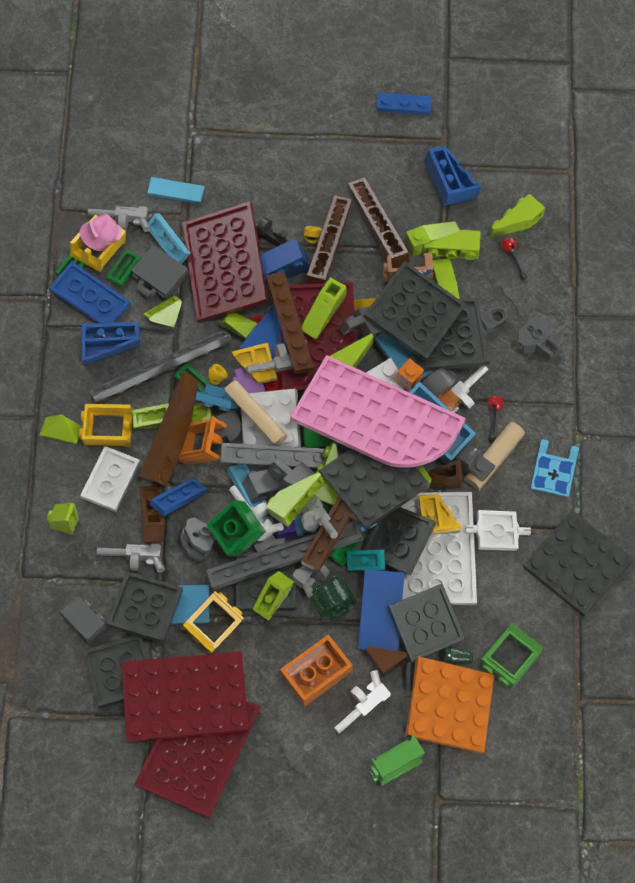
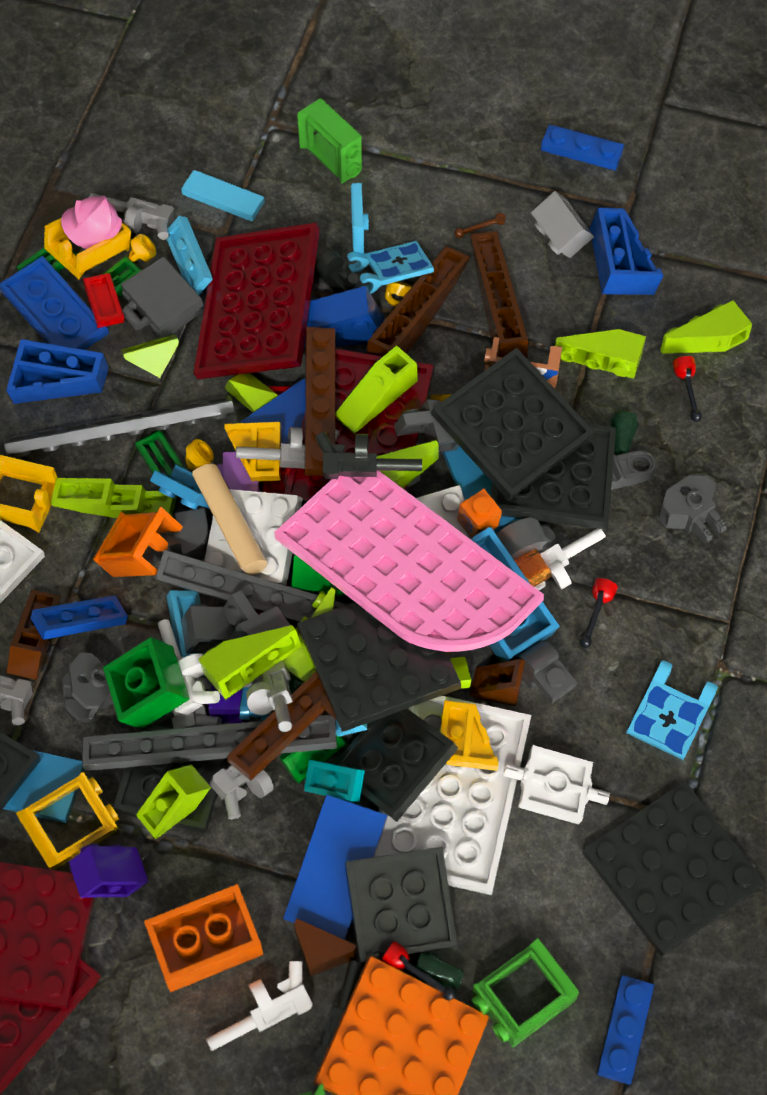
camera: 15 degrees right, 5 degrees down
(122, 283) = (103, 300): none -> red tile
(135, 241) = (142, 248): none -> yellow tile
(171, 433) = (99, 521): reddish brown slope -> none
(239, 137) = (335, 143): none -> bright green window
(248, 645) = (108, 871): none -> dark purple brick
(274, 192) = (359, 220): none -> medium azure plate
(303, 216) = (391, 264): none -> medium azure flag
(330, 360) = (358, 463): none -> pearl dark grey piece
(333, 599) = (264, 830): clear green brick -> none
(363, 167) = (499, 219): none -> reddish brown hinge
(406, 164) = (562, 225): none -> light grey brick
(424, 234) = (563, 323): lime slope -> none
(434, 654) = (399, 959): none -> hinge
(445, 276) = (577, 389): lime slope -> none
(482, 292) = (625, 431): none -> clear green cone
(498, 452) = (589, 665): tan brick -> none
(573, 662) = (625, 1030): none -> blue plate

